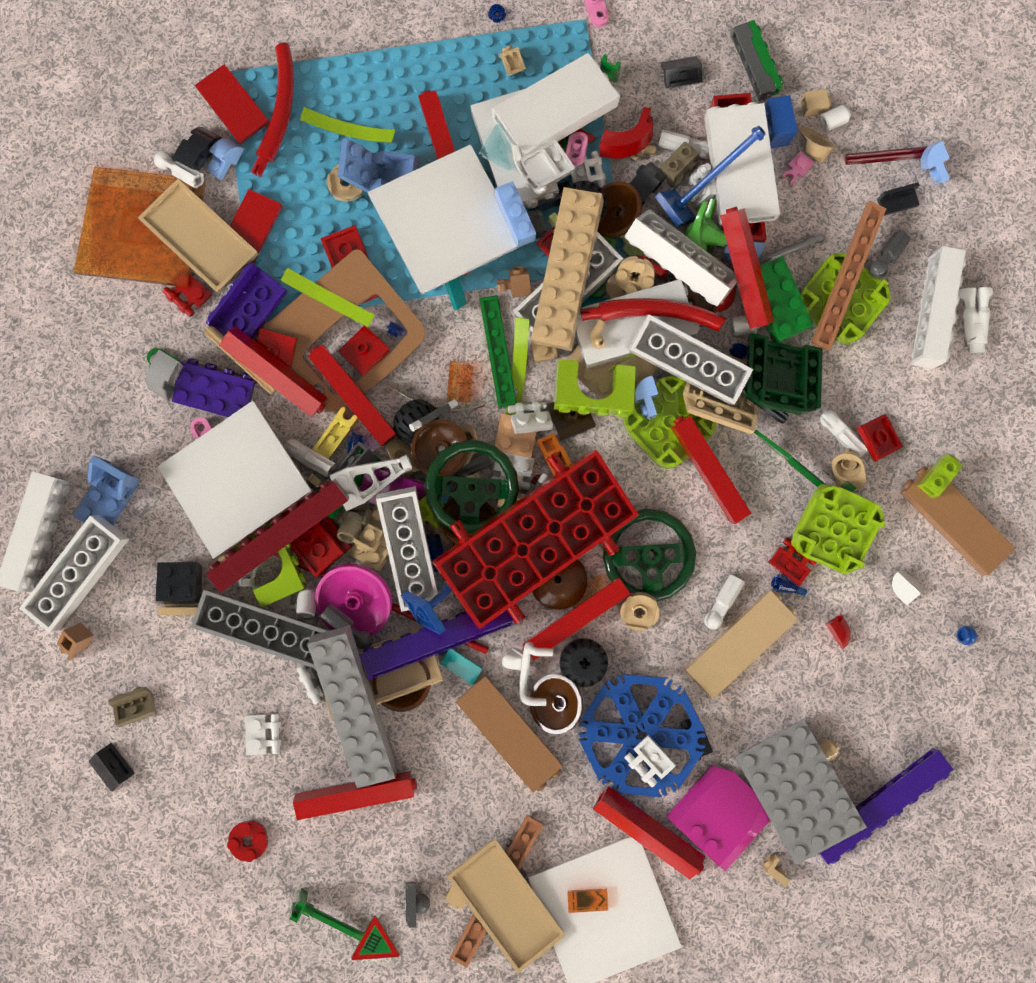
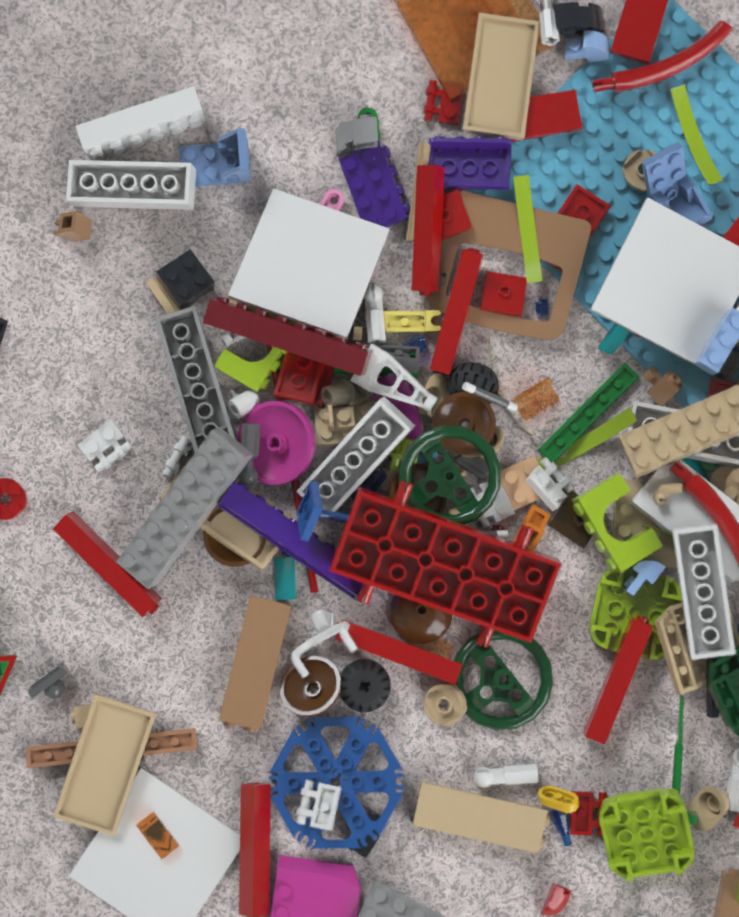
camera: 55 degrees right, 0 degrees up
(132, 706) = (52, 317): dark tan bracket -> none
(544, 353) = (616, 456): tan bracket -> none
(767, 576) = (558, 799): none -> yellow plate

